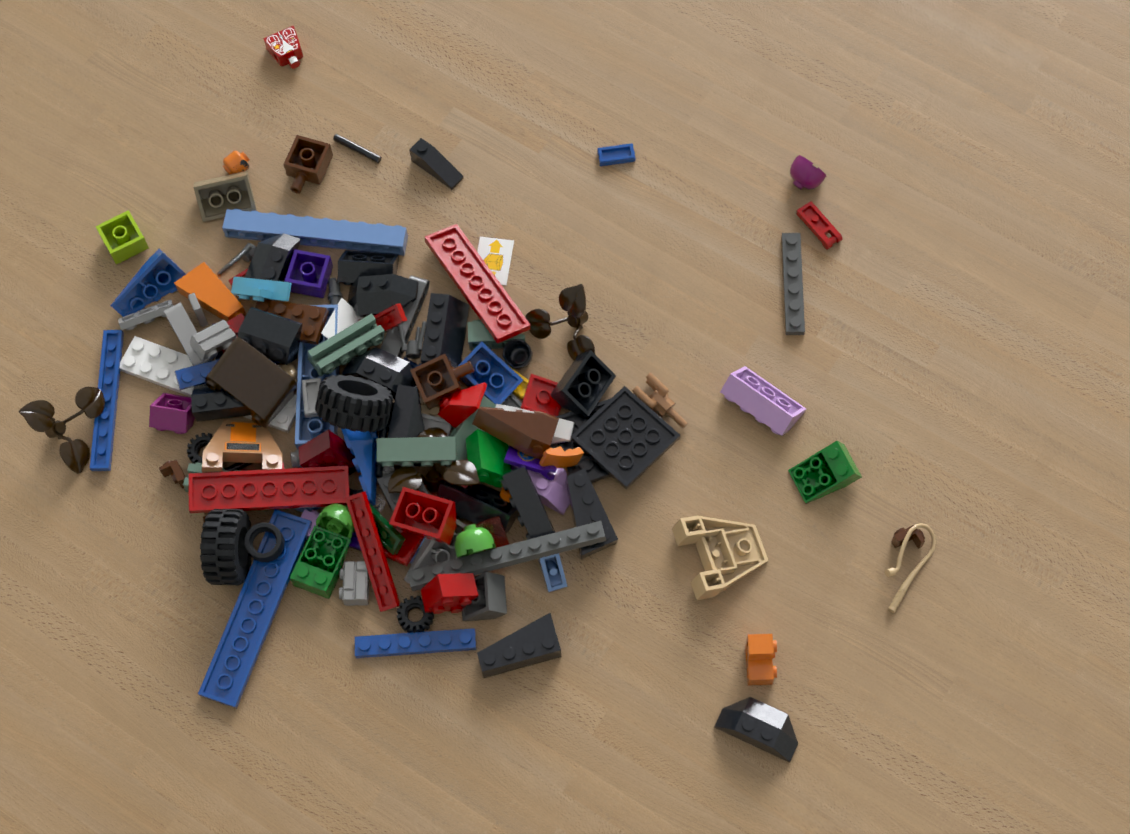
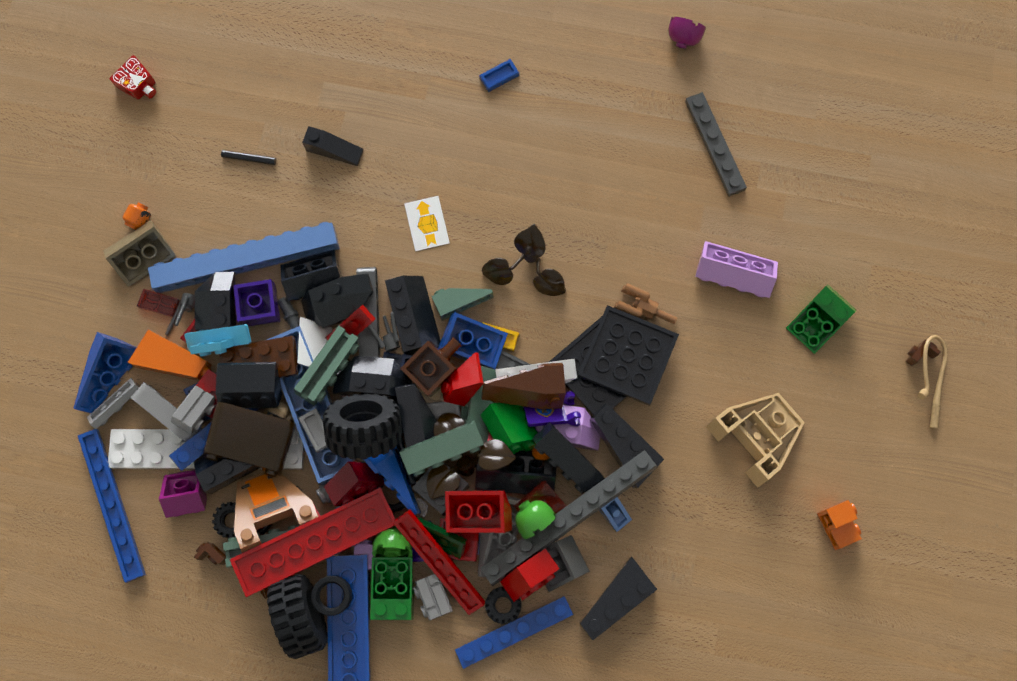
camera: 20 degrees left, 10 degrees up
(40, 418) = (55, 557): dark brown plant -> none
(122, 237) = (55, 333): lime brick -> none
(197, 309) = (163, 381): light grey tile -> none
(222, 244) = (158, 303): none -> clear red tile
(307, 162) = (206, 189): reddish brown brick -> none
(477, 283) = (424, 253): plate -> none
(517, 354) = (491, 309): black hair -> none
(538, 396) = (532, 342): red plate -> none
(560, 458) = (578, 400): orange slope -> none
(583, 384) = (566, 317): black slope -> none
(759, 726) = (863, 587): black wedge -> none
(819, 225) = (716, 78): red plate -> none

